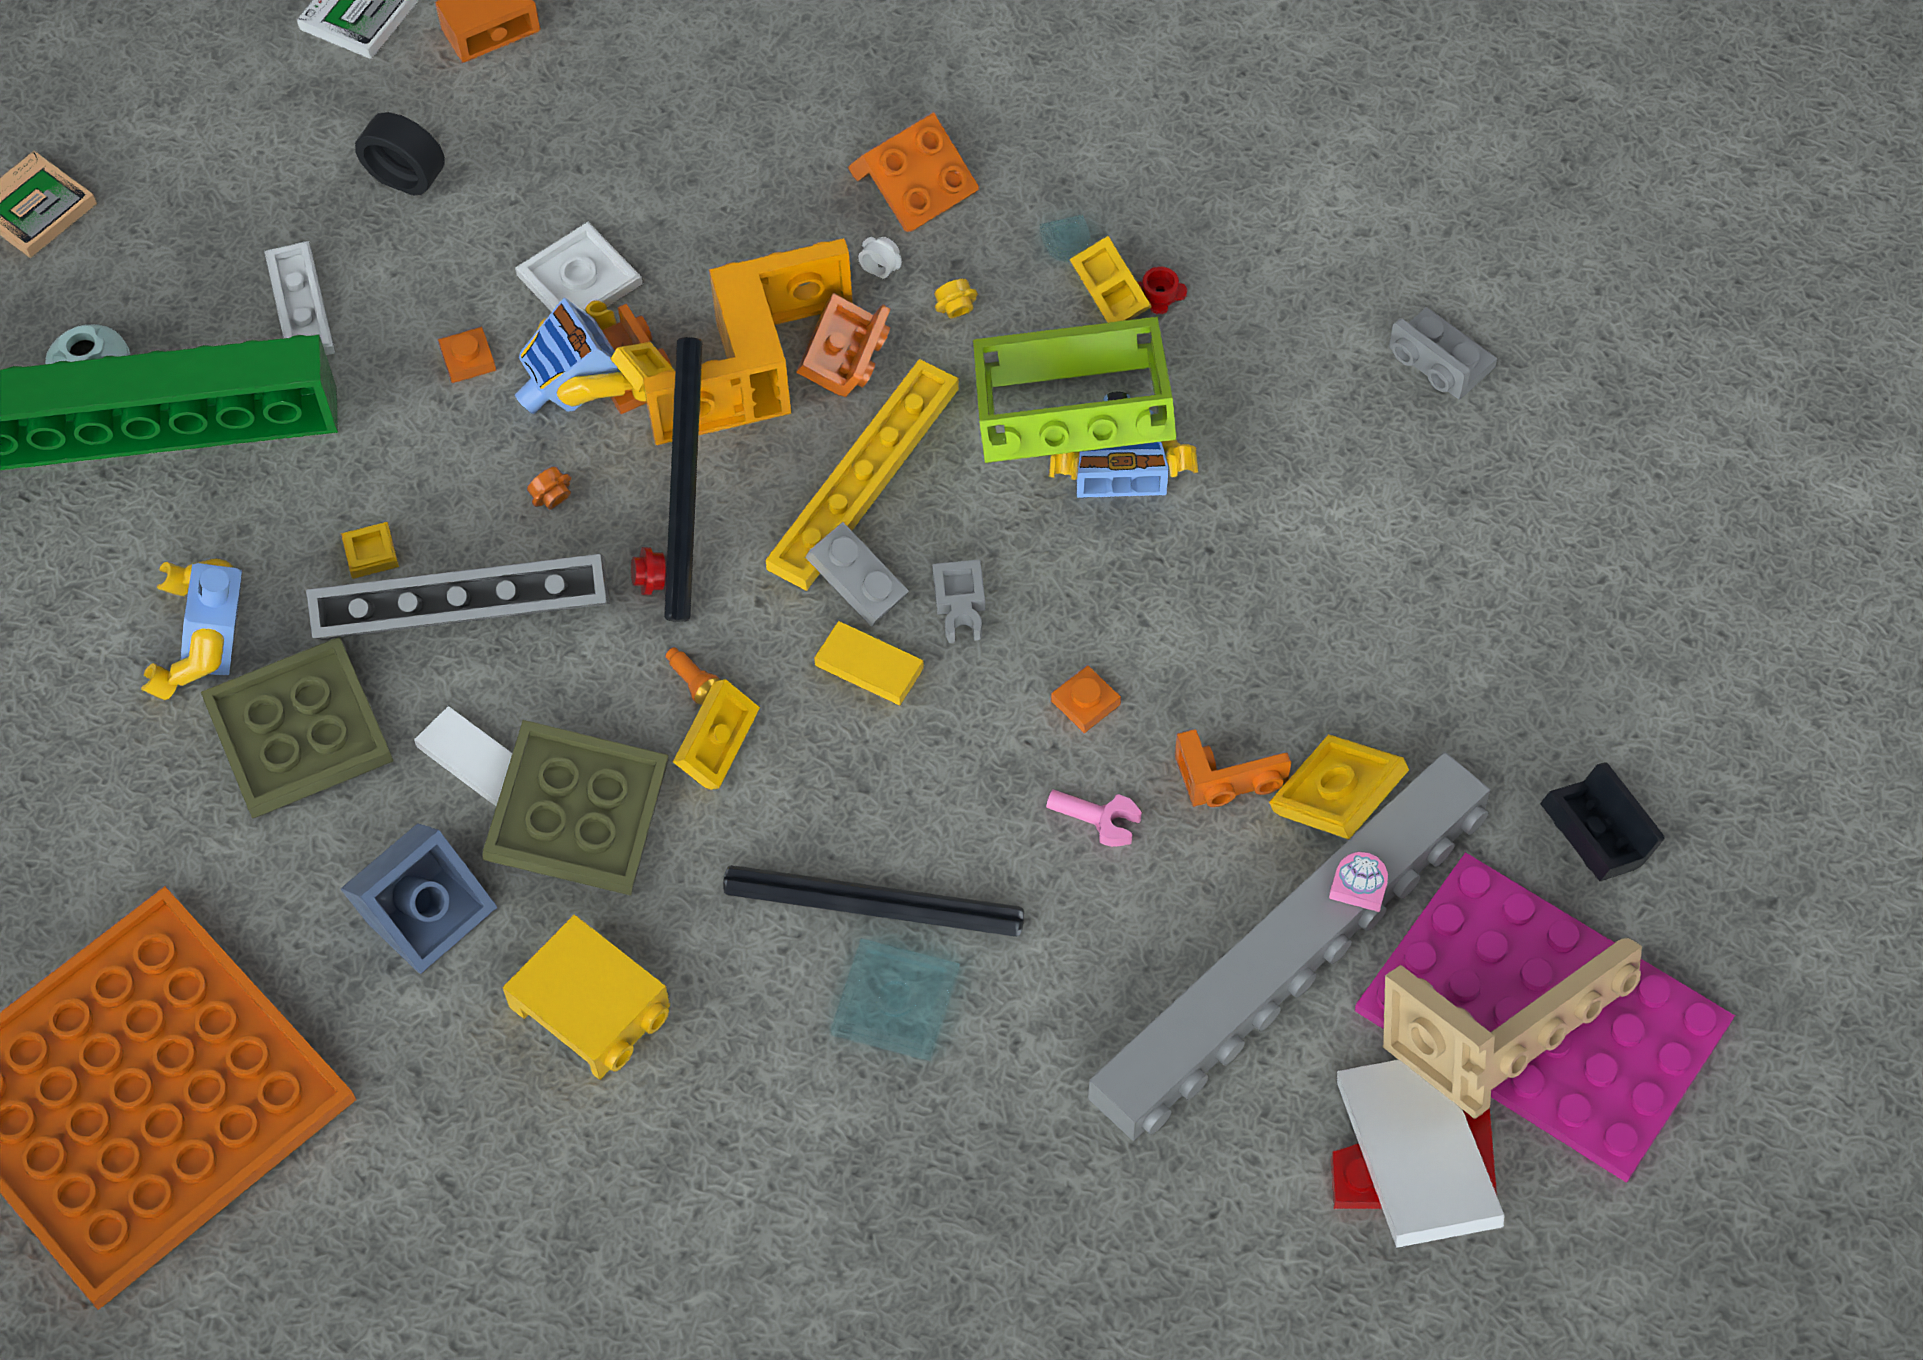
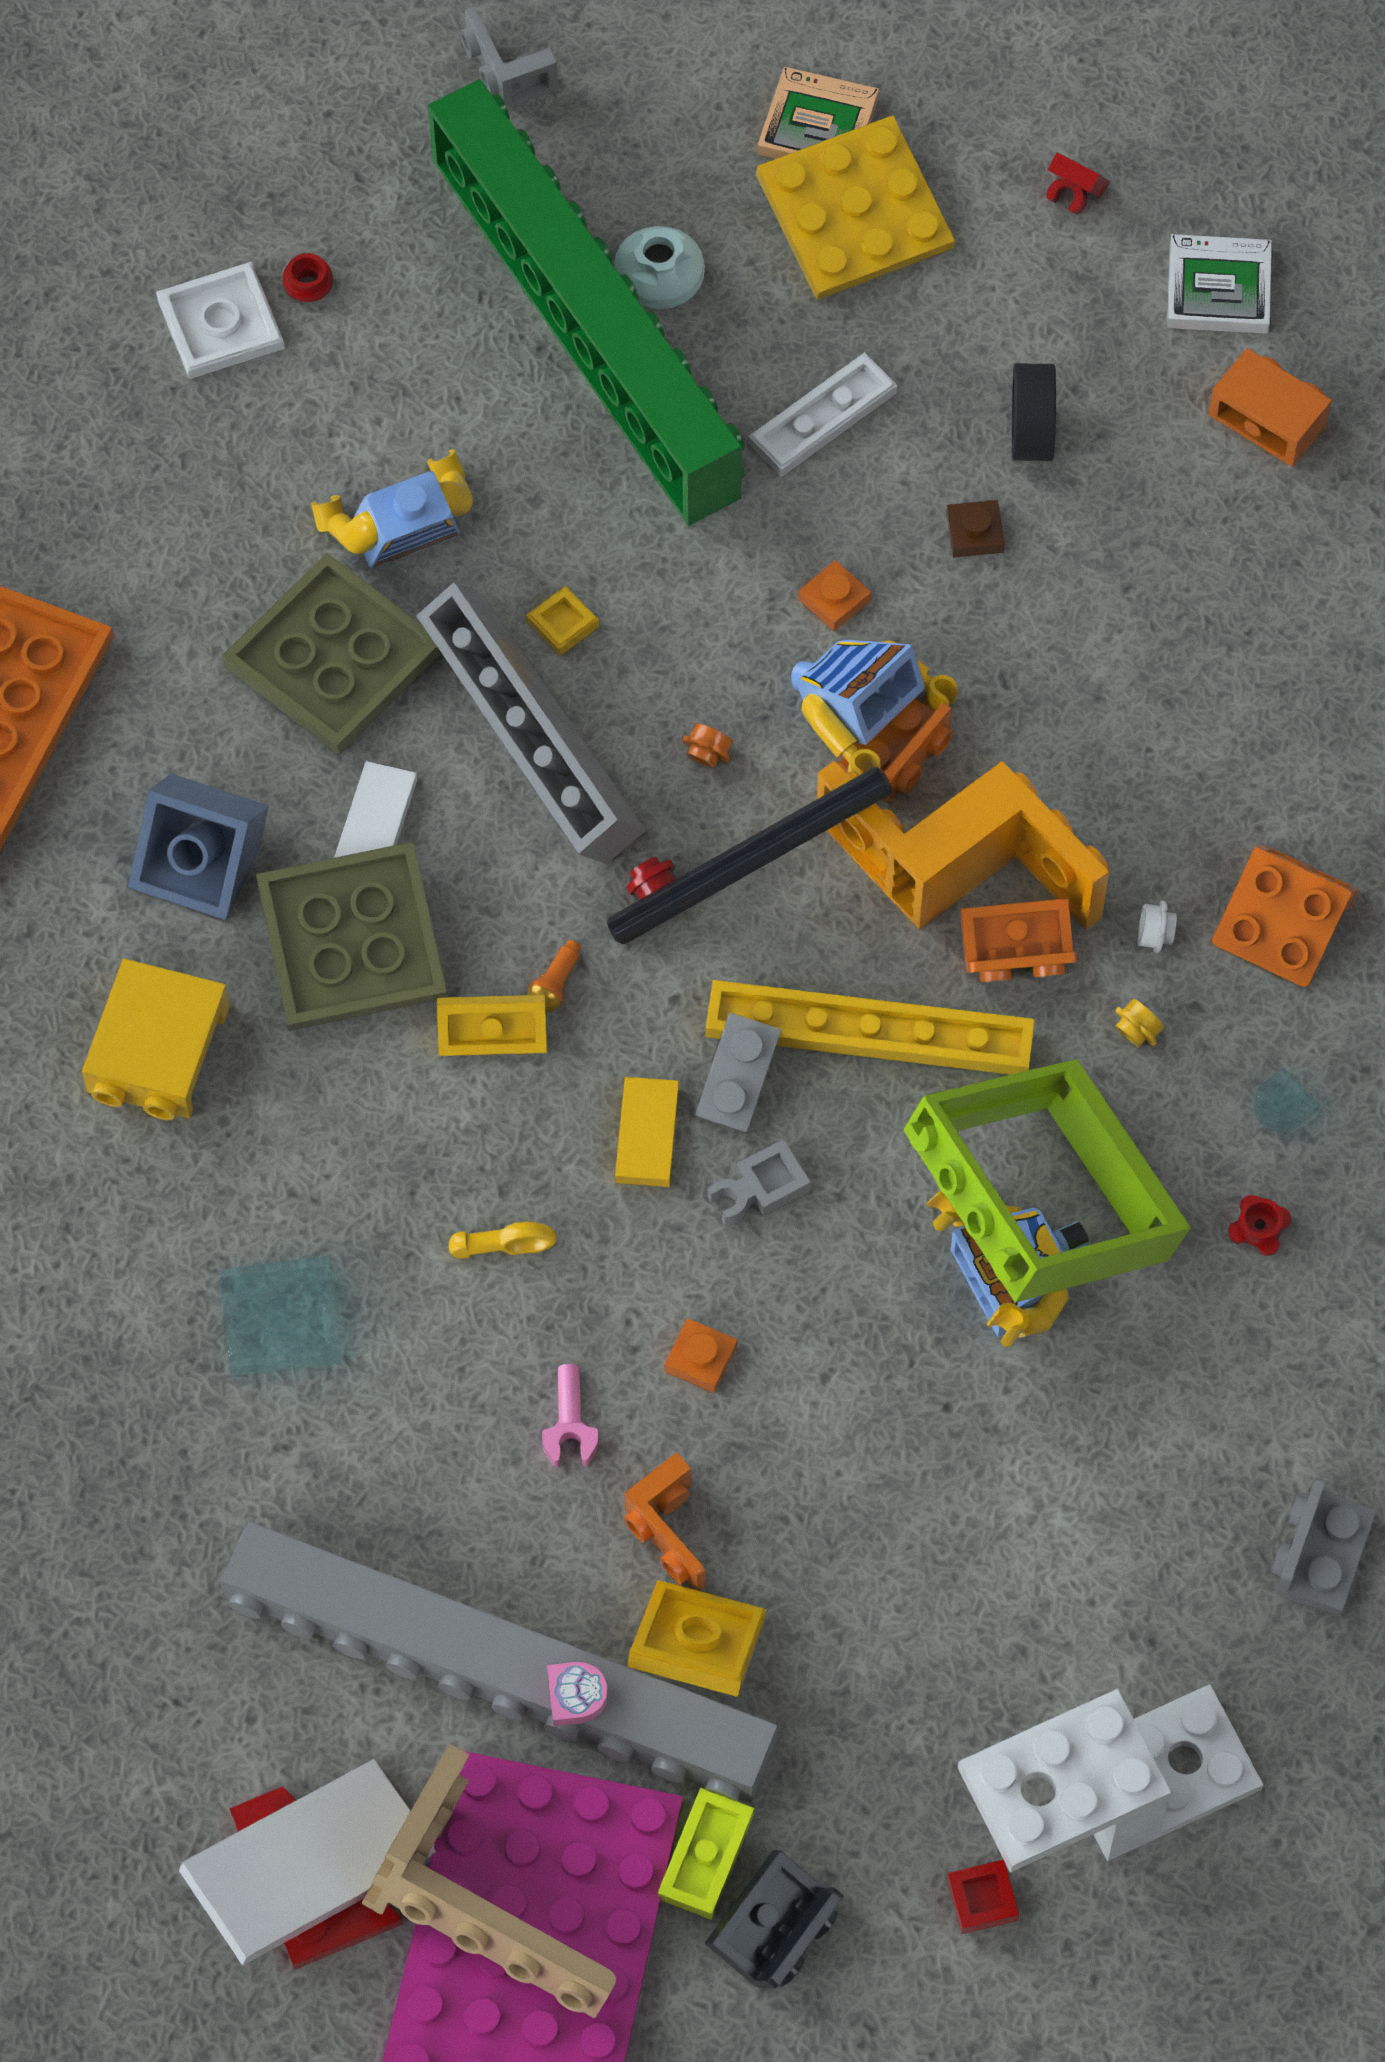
camera: 65 degrees right, 5 degrees up
(130, 206) = (854, 207): none -> yellow plate
(208, 54) = (1077, 178): none -> red tile
(467, 241) = (975, 528): none -> reddish brown plate
(580, 269) = (988, 650): white tile -> none
(639, 362) = (867, 749): yellow tile -> none
(873, 900) = (377, 1252): black axle -> none
(916, 796) = (514, 1239): none -> yellow piece
(1110, 282) = (1240, 1171): yellow slope -> none
(1521, 853) = (706, 1853): none -> neon yellow plate
(1591, 538) = (1109, 1776): none -> white bracket
(1633, 676) = (982, 1896): none -> red plate

